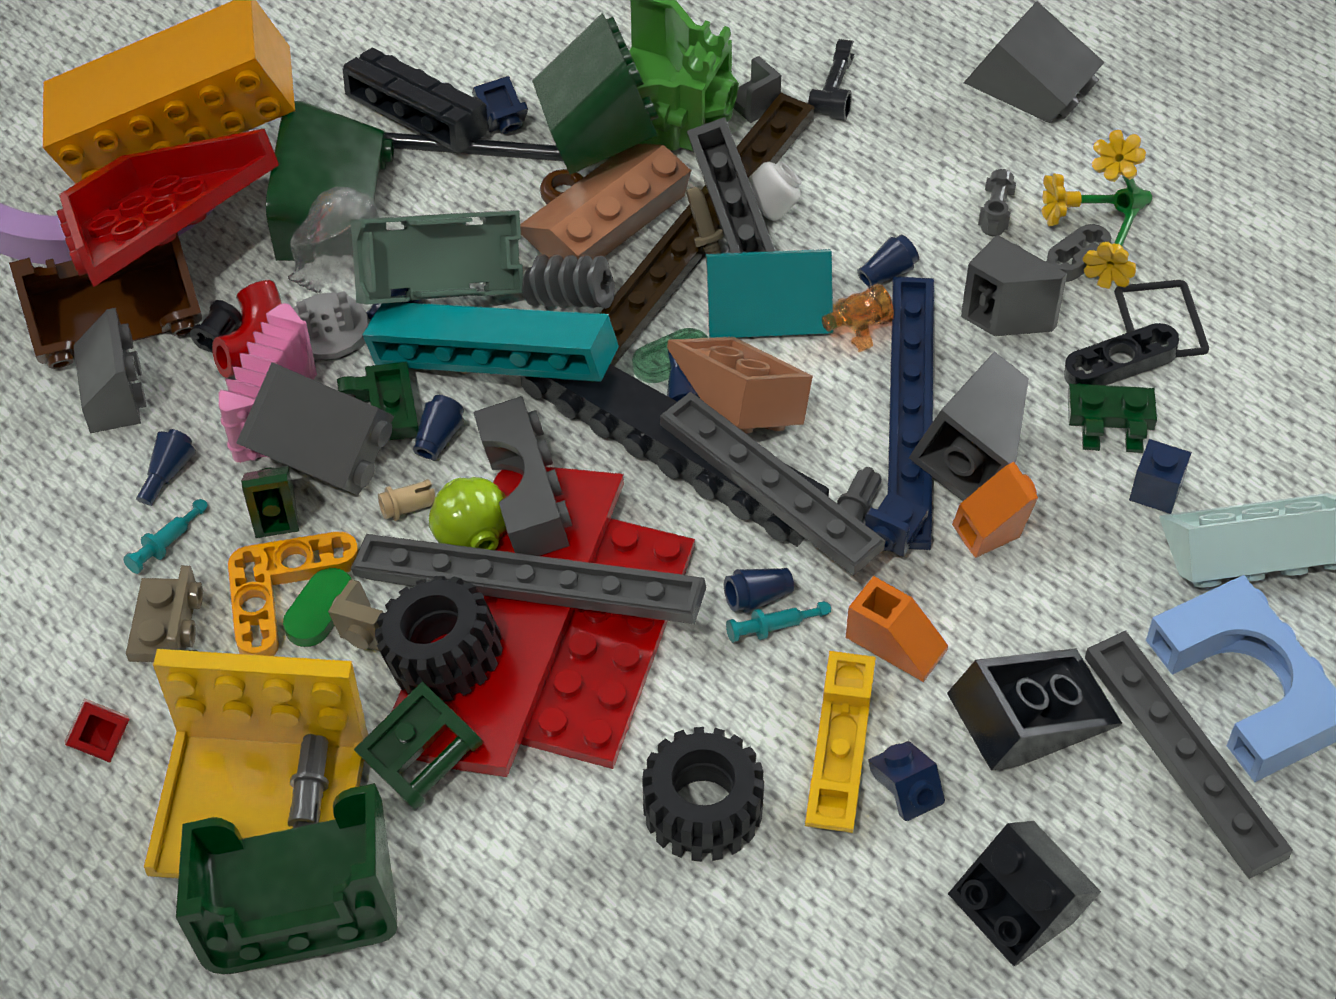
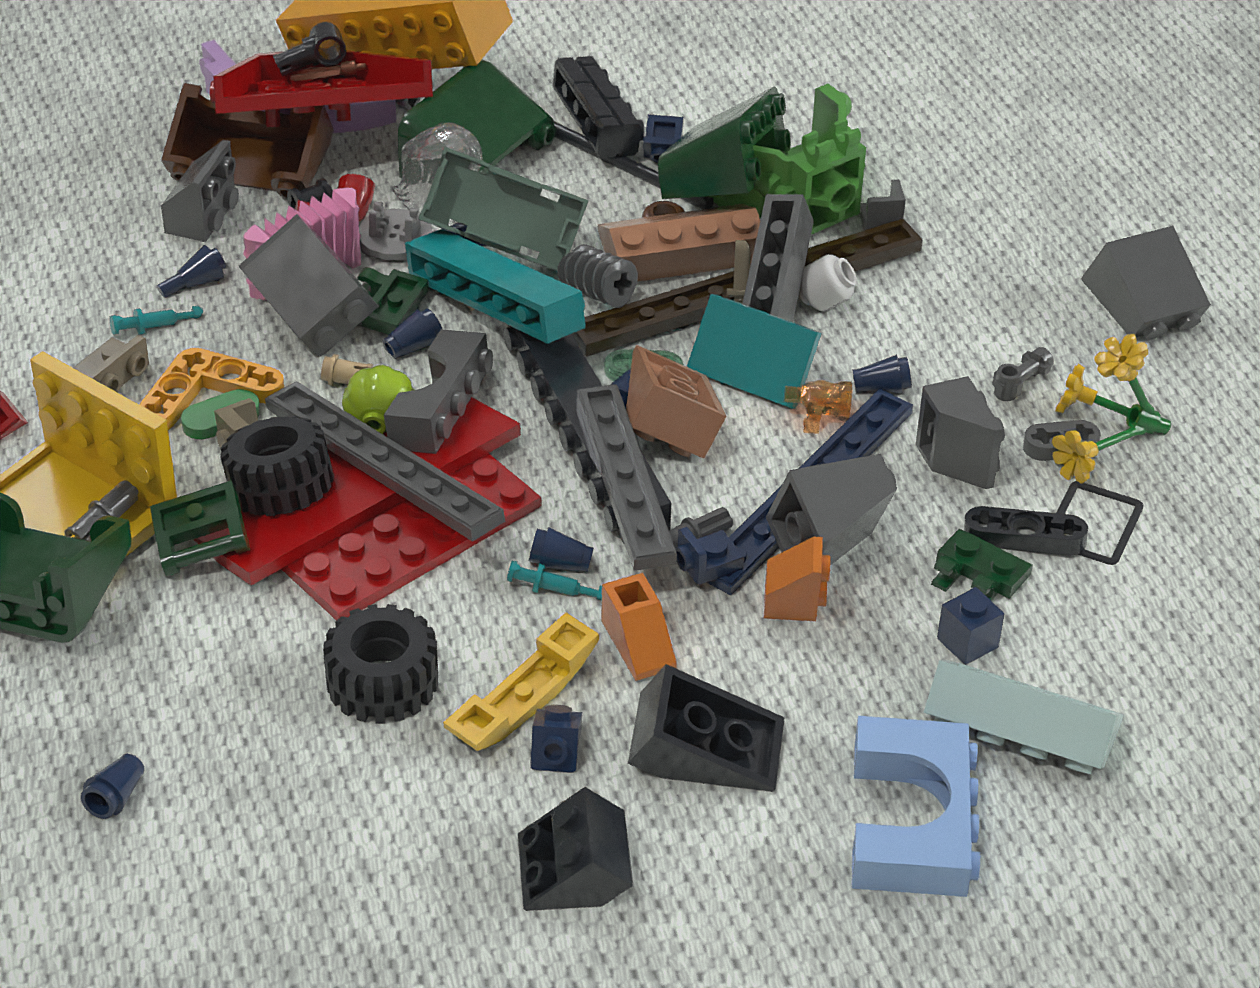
camera: 30 degrees right, 10 degrees down
(126, 158) = (311, 52): none -> black pin
(143, 186) = (346, 69): none -> copper piece
(270, 501) = (242, 324): dark green slope -> none
(833, 99) = (951, 245): black brick -> none
(1188, 755) = (806, 836): dark grey plate -> none

